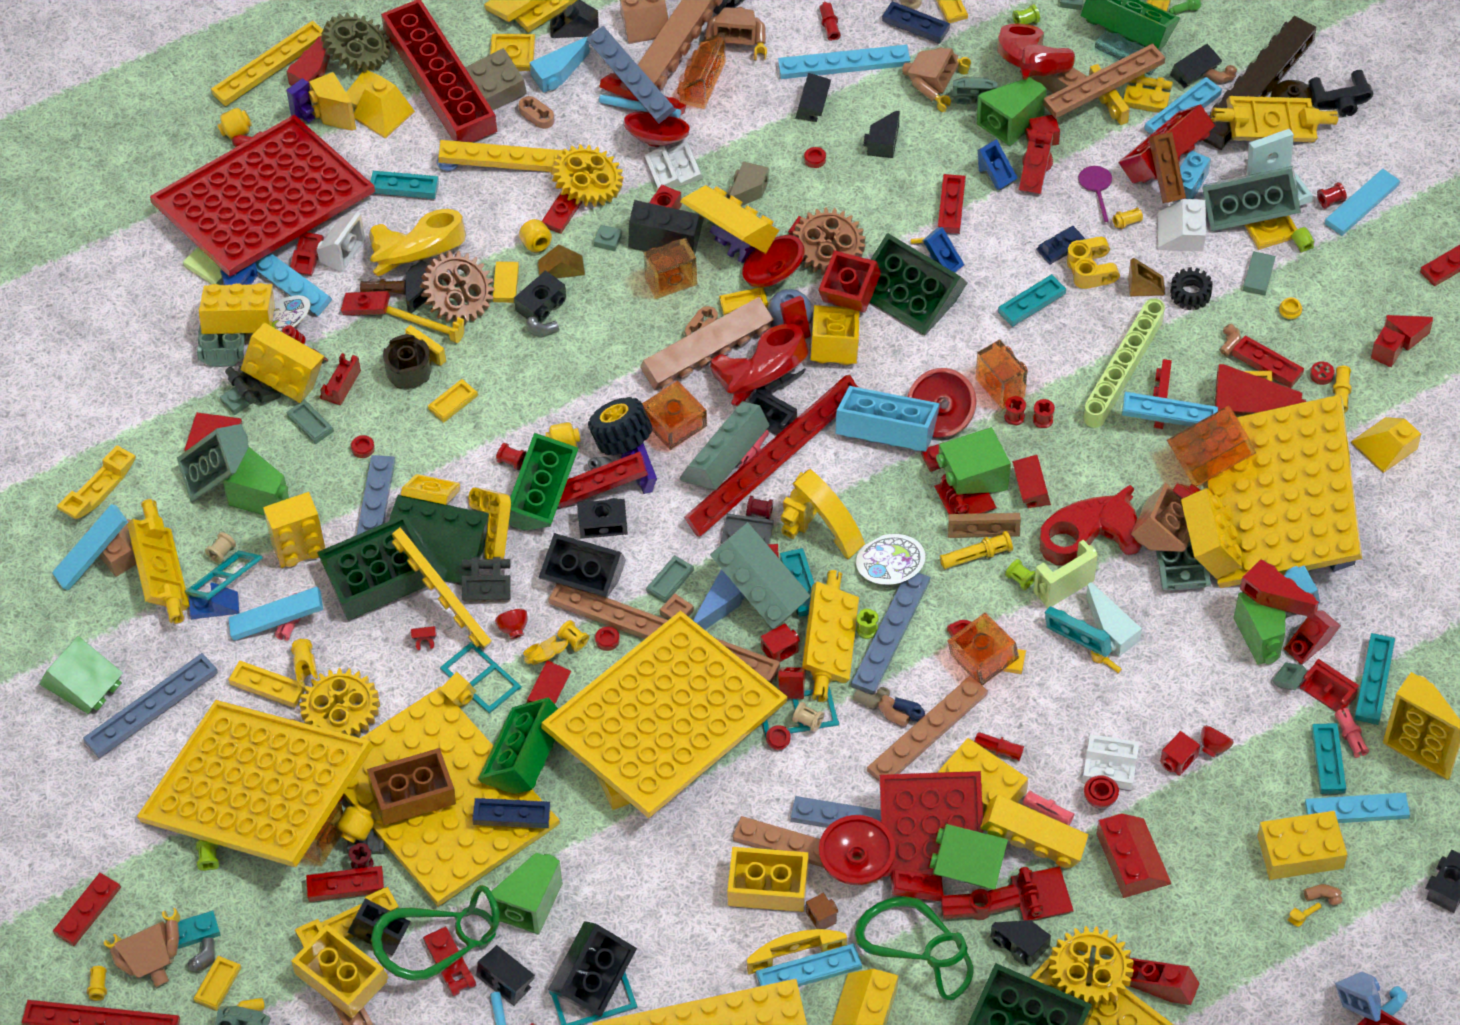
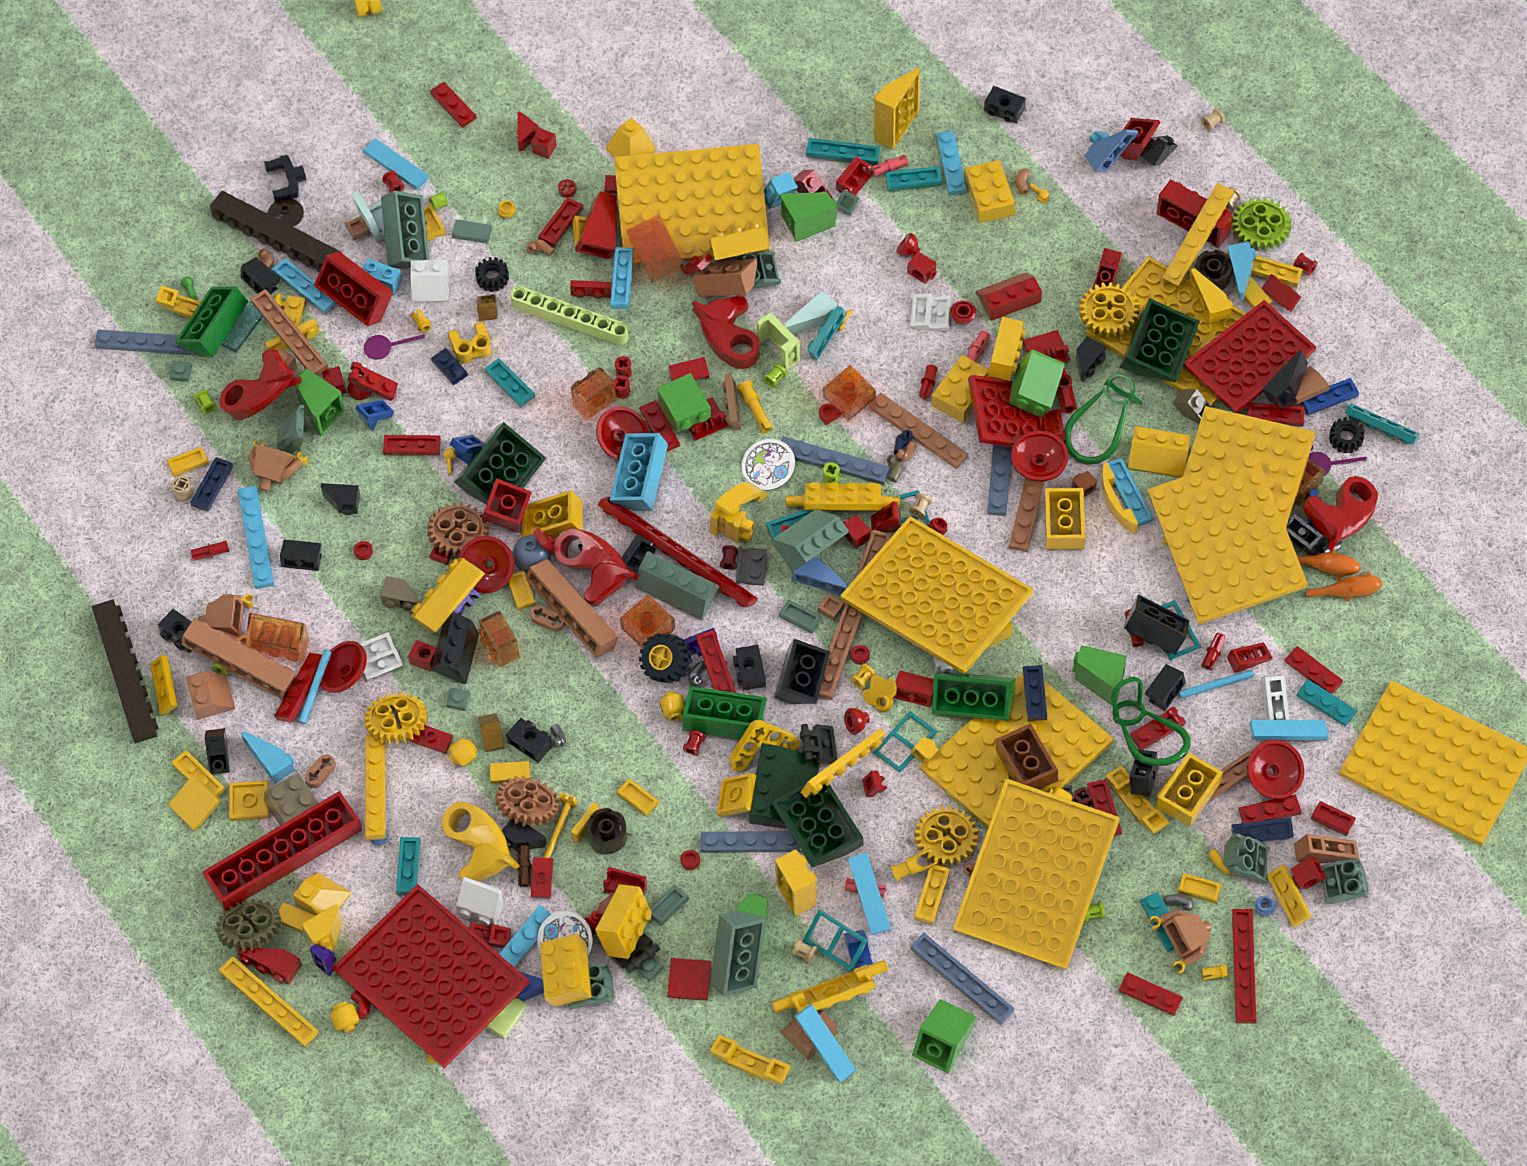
camera: 95 degrees left, 5 degrees up
(631, 74) = (287, 690): sand blue plate -> none
(1167, 167) = (388, 280): dark orange plate -> none
(1264, 116) = (321, 217): yellow plate -> none
(1274, 590) = (793, 198): red slope -> none
(1342, 384) = (583, 174): yellow pin -> none

